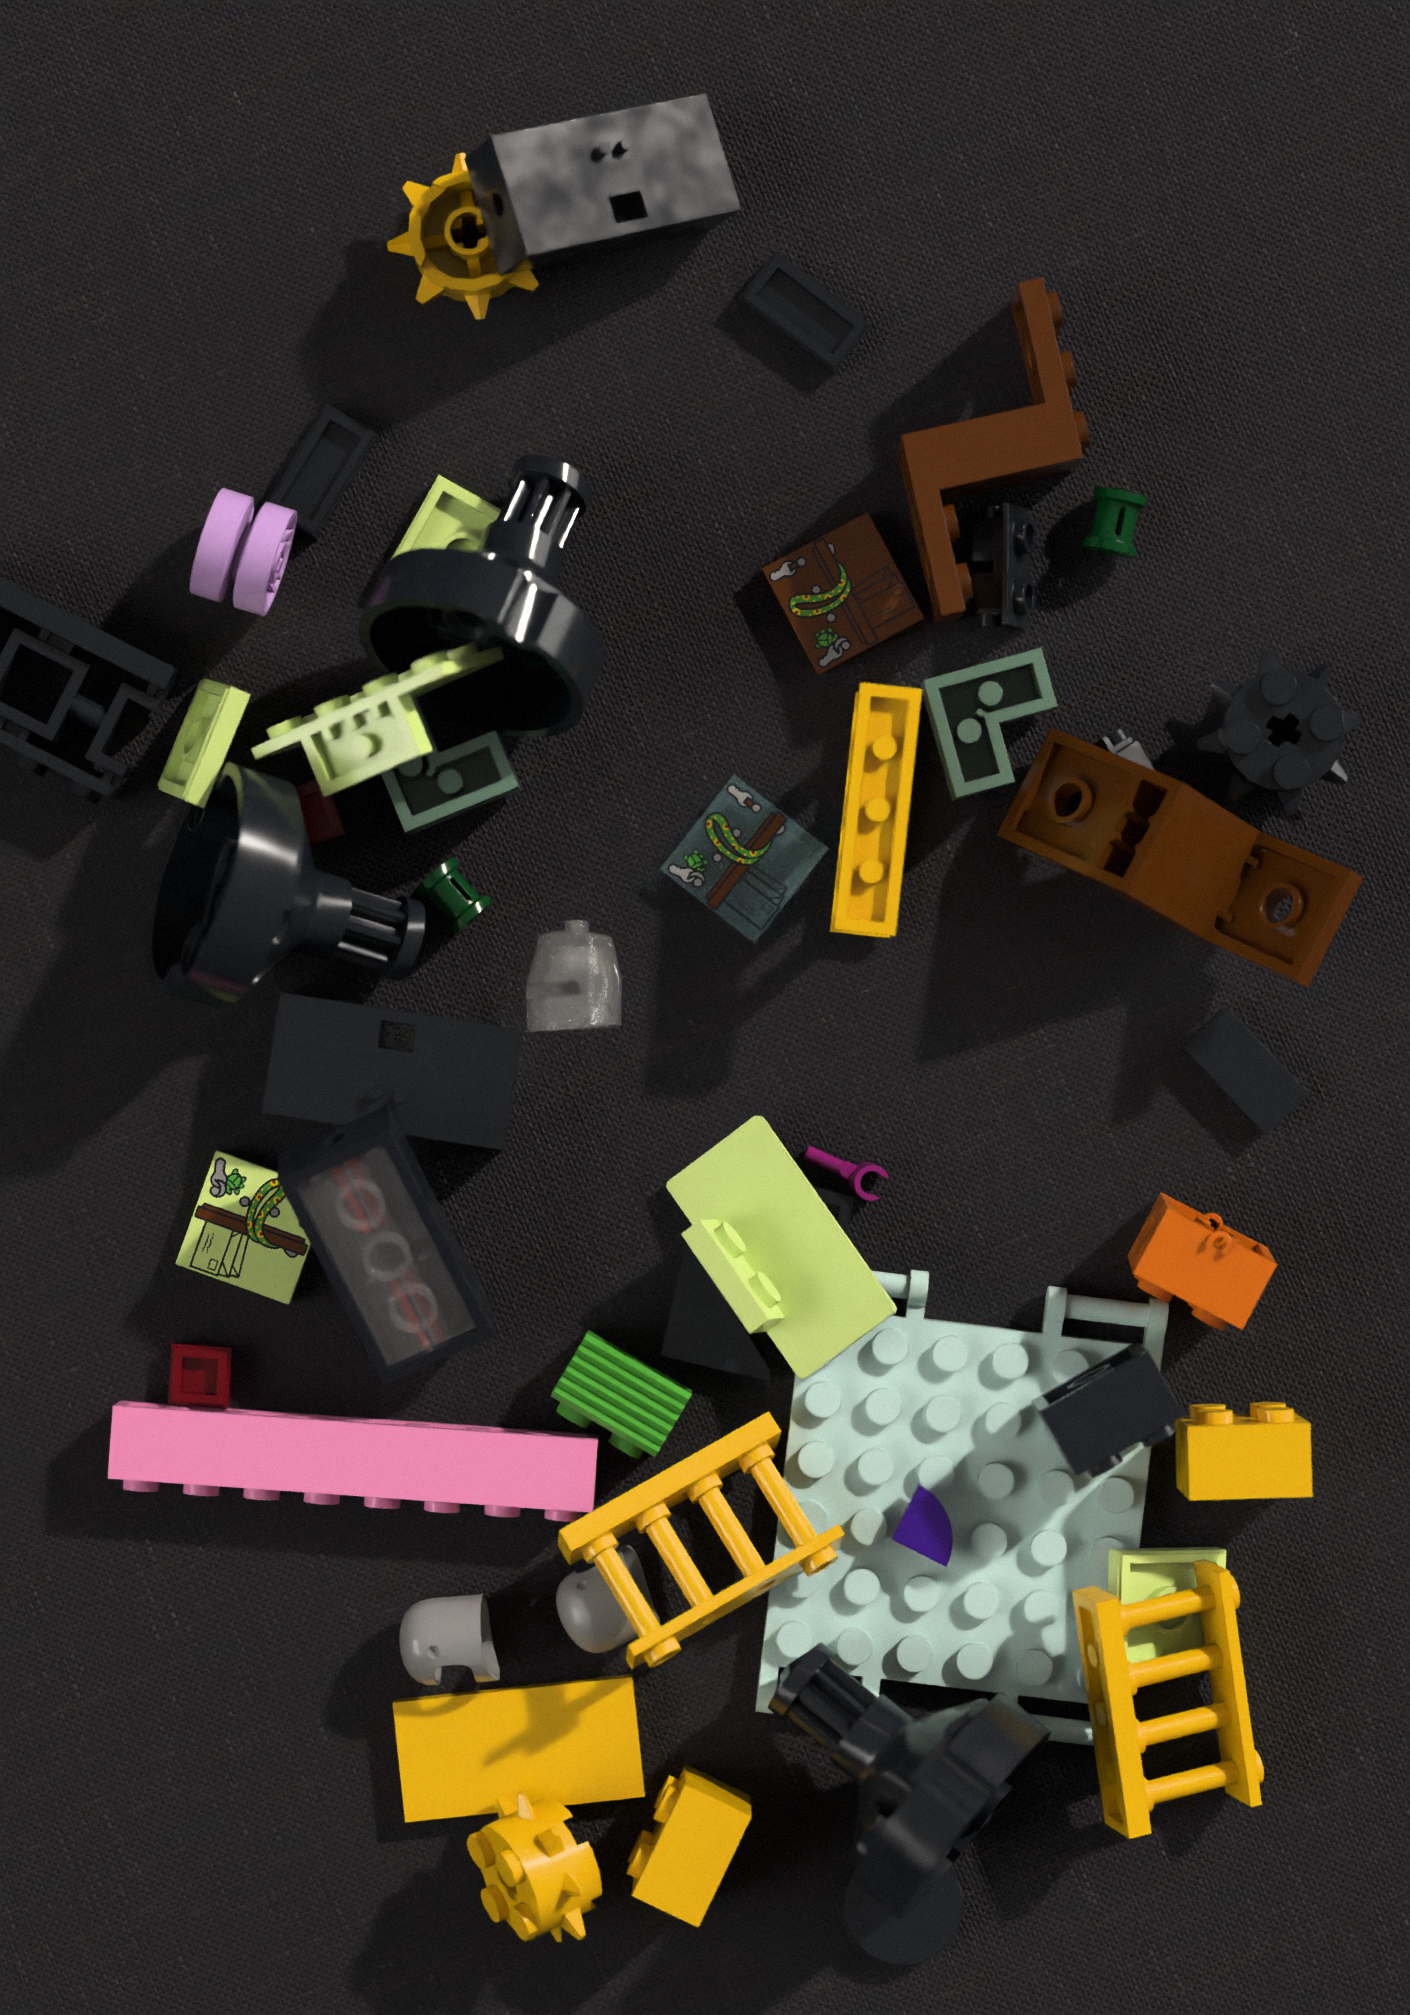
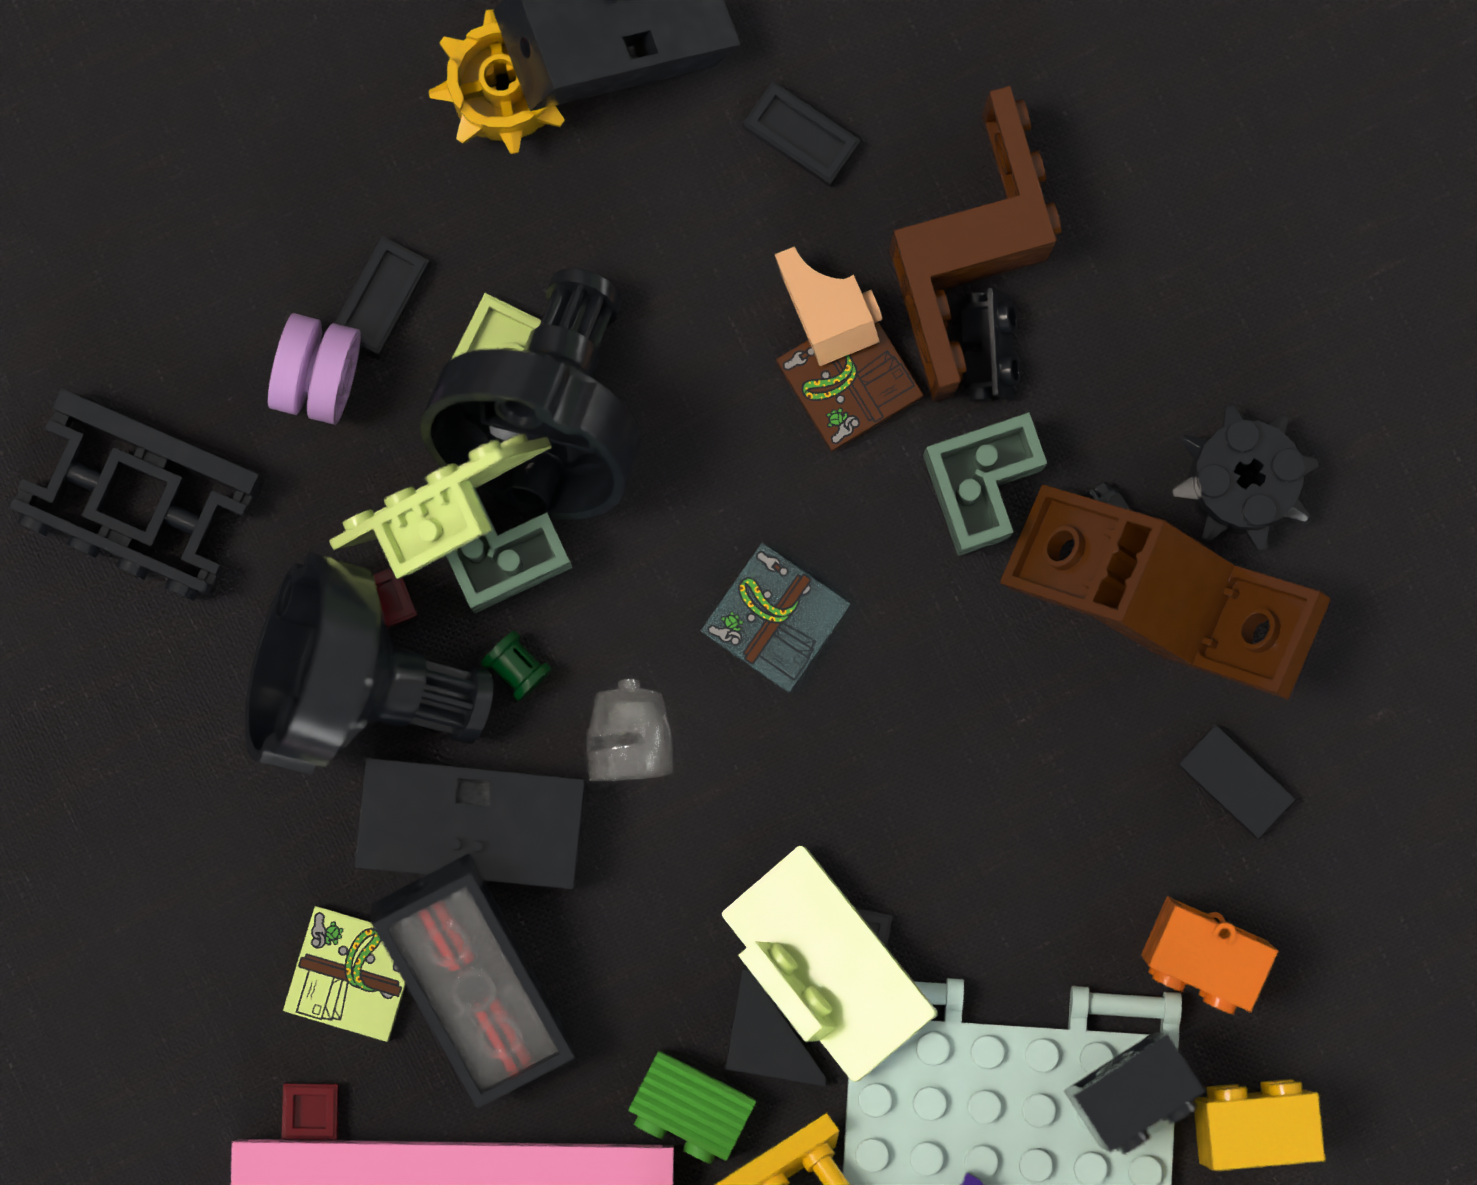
camera: 10 degrees left, 5 degrees down
(203, 741) = (286, 538): yellowish green tile -> none
(826, 517) = (830, 309): none -> light nougat arch
(845, 1170) = (882, 892): magenta hand -> none
(875, 810) = (891, 565): yellow fence -> none
(1114, 522) = (1086, 301): dark green bush -> none

